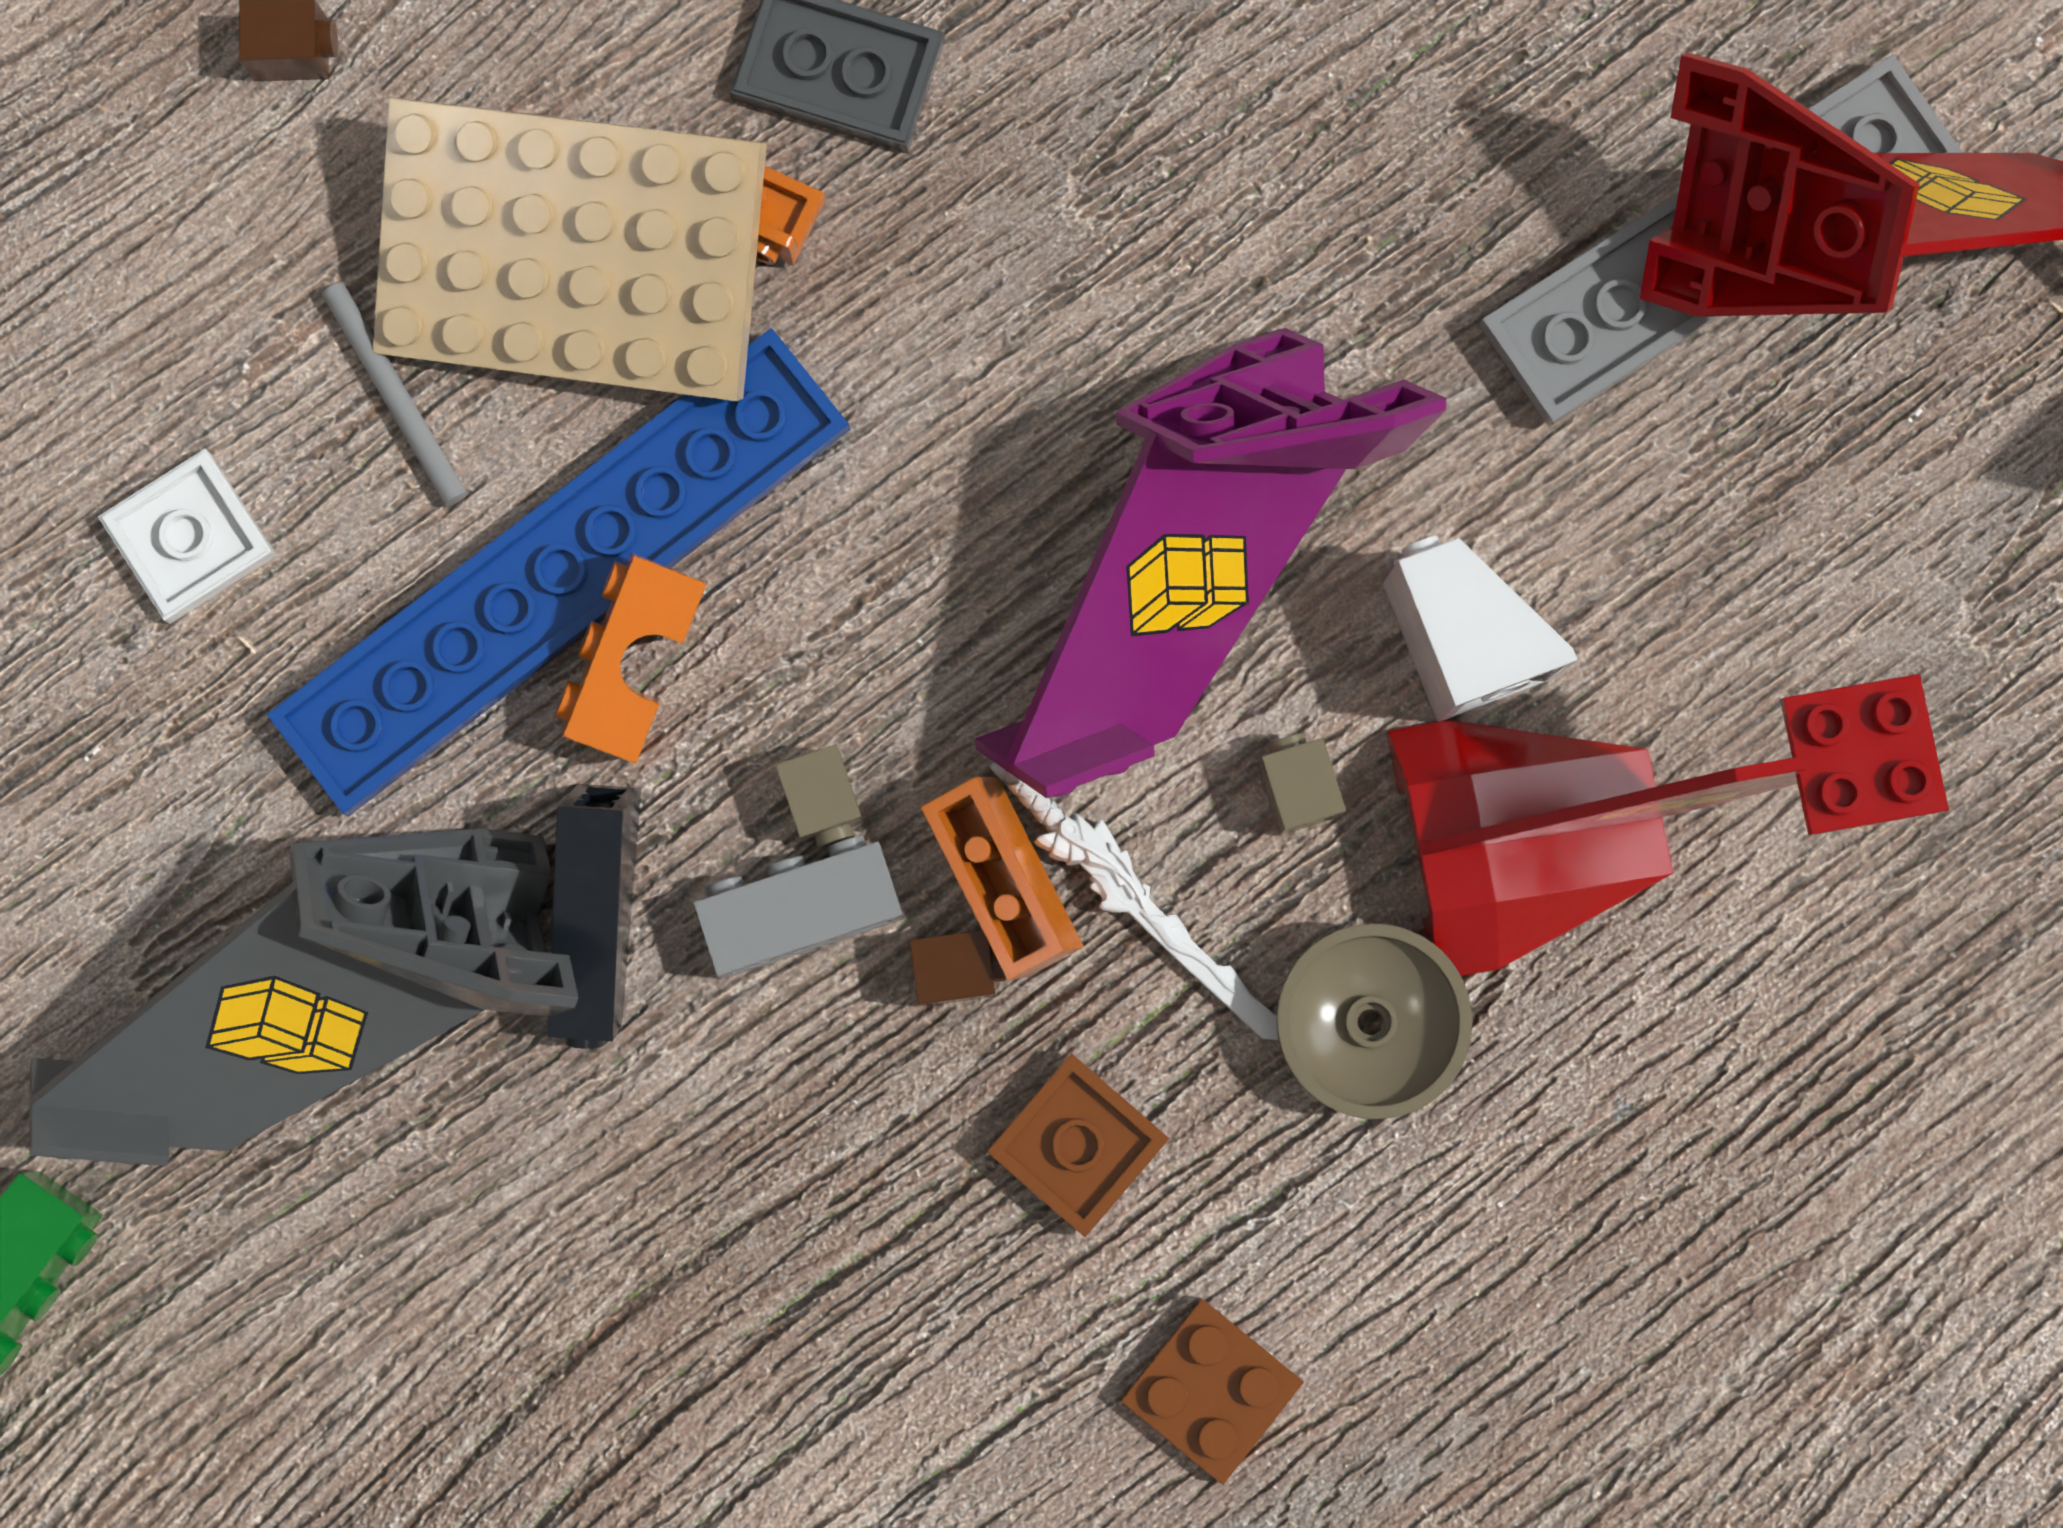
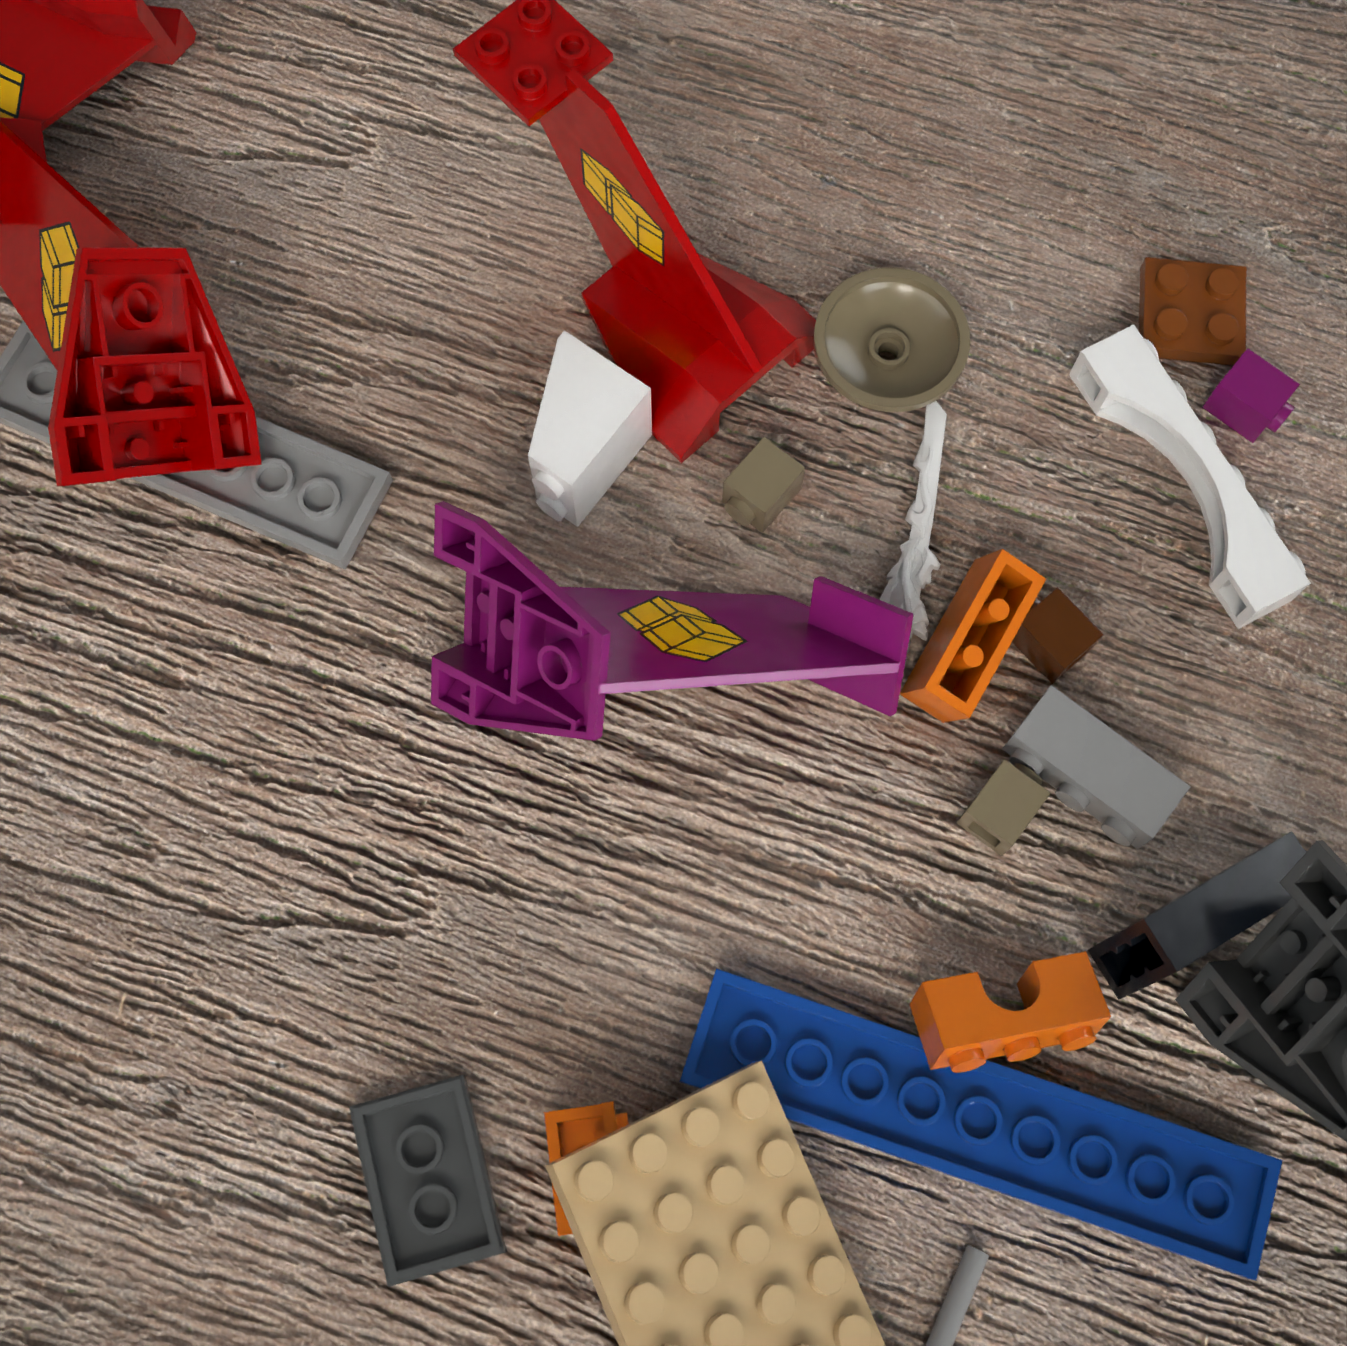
camera: 120 degrees left, 10 degrees down
(1069, 1368) = (1252, 397): none -> magenta brick
(1078, 1145) = (1107, 483): dark orange plate -> none
(1167, 1245) = (1249, 561): none -> white arch

